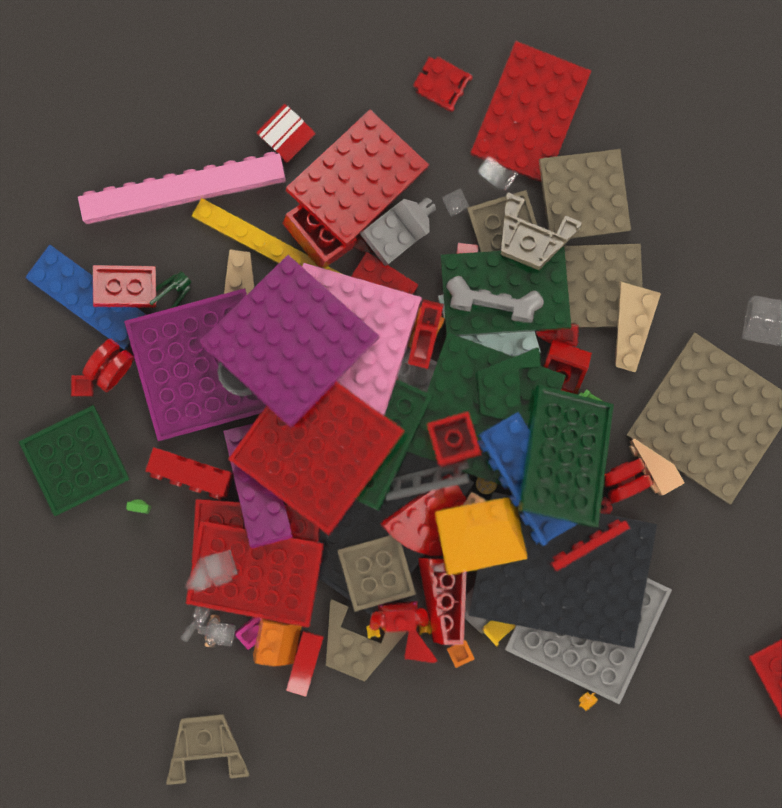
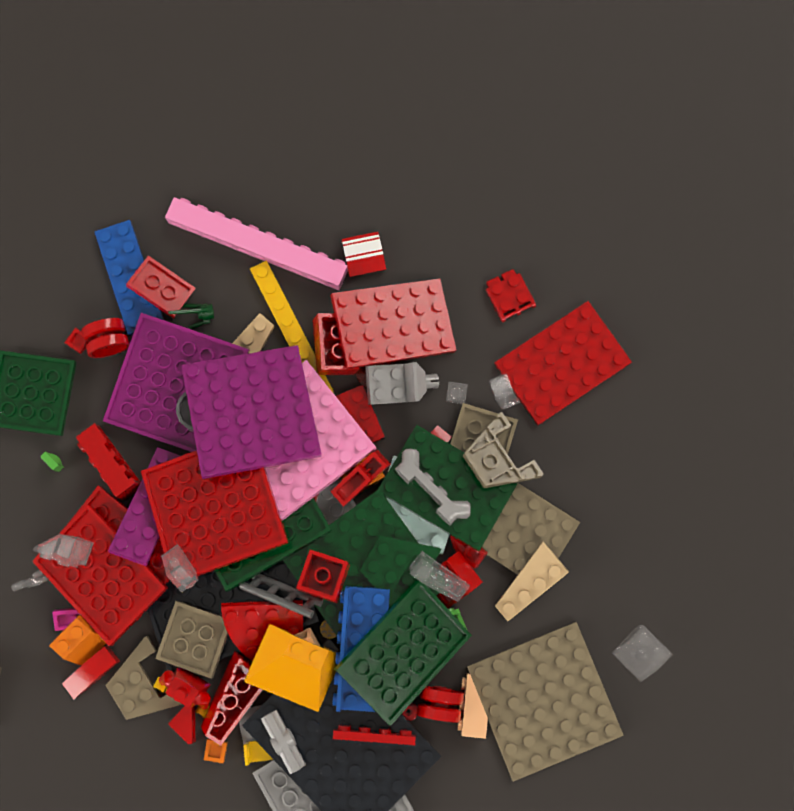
camera: 35 degrees right, 5 degrees down
(217, 632) = (41, 600): clear piece -> none
(326, 516) = (179, 568): none -> clear slope
(515, 603) = (283, 742): none -> light grey piece
(552, 373) = (438, 577): none -> clear slope
(586, 189) = (565, 453): dark tan plate -> none

